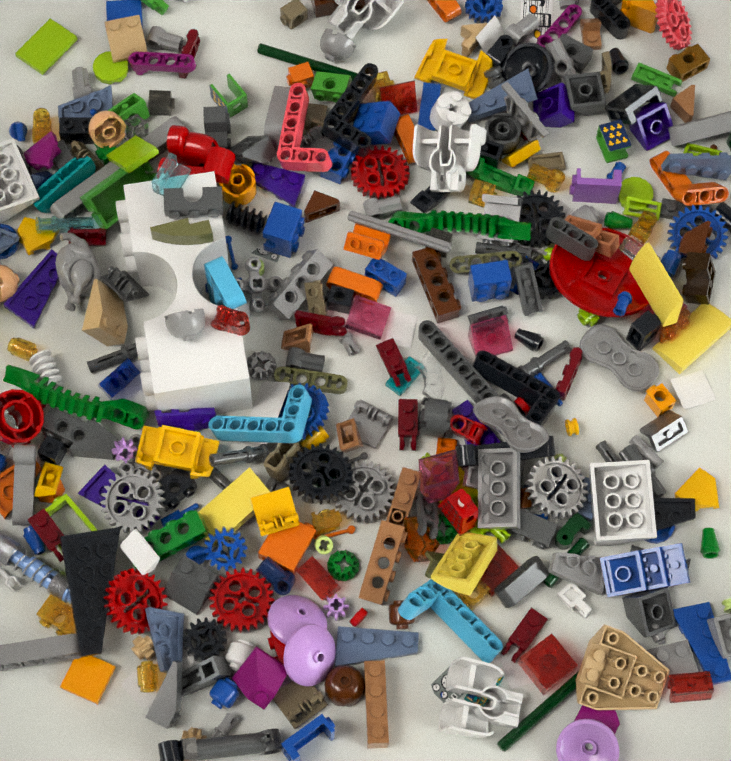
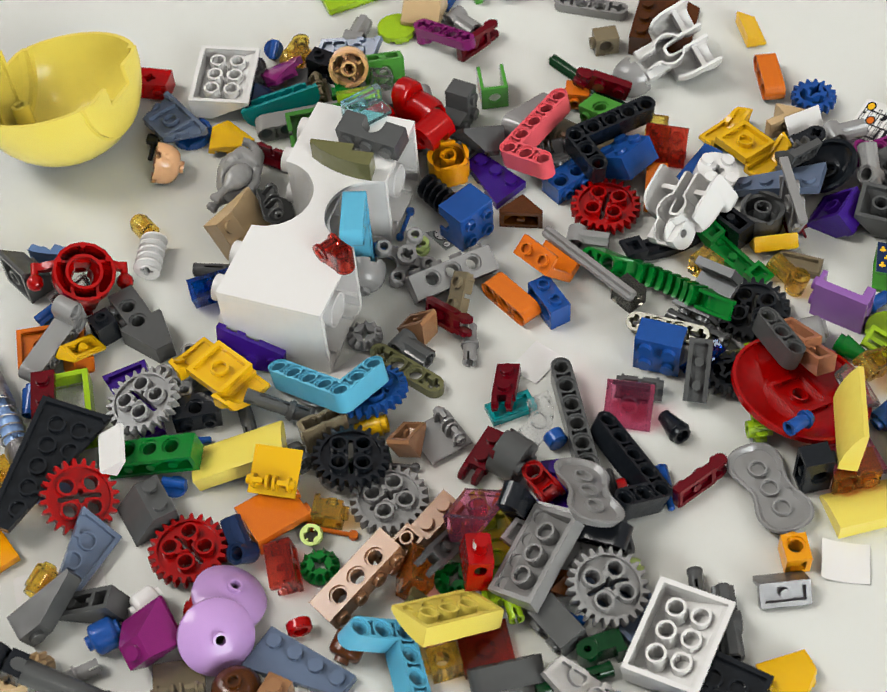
camera: 35 degrees right, 15 degrees down
(34, 291) = (187, 186): dark purple wing -> none
(55, 224) = (248, 131): clear light blue pin -> none
(126, 455) = (174, 347): lavender gear -> none
(131, 413) = (192, 317): green piece -> none
(143, 647) = (55, 549): tan gear -> none
(160, 102) = (422, 69): clear smoke brick -> none
(185, 323) = (287, 236): light grey cylinder -> none
(196, 635) = (124, 570): black gear -> none
(218, 552) = (200, 478): blue gear -> none
(320, 61) = (602, 83): none -> dark red hinge
(336, 613) = (281, 604): lavender gear -> none
(340, 306) = (487, 305): black brick -> none
(368, 317) = (505, 334): clear pink tile -> none
(442, 310) = (599, 331): reddish brown brick -> none
(452, 387) = (555, 438): none -> blue piece
(508, 62) = (803, 150): none -> dark grey plate
(538, 364) = (668, 455): dark grey pin -> none
(572, 427) = (669, 537): yellow bush -> none
(646, 451) = (746, 603): light grey axle -> none

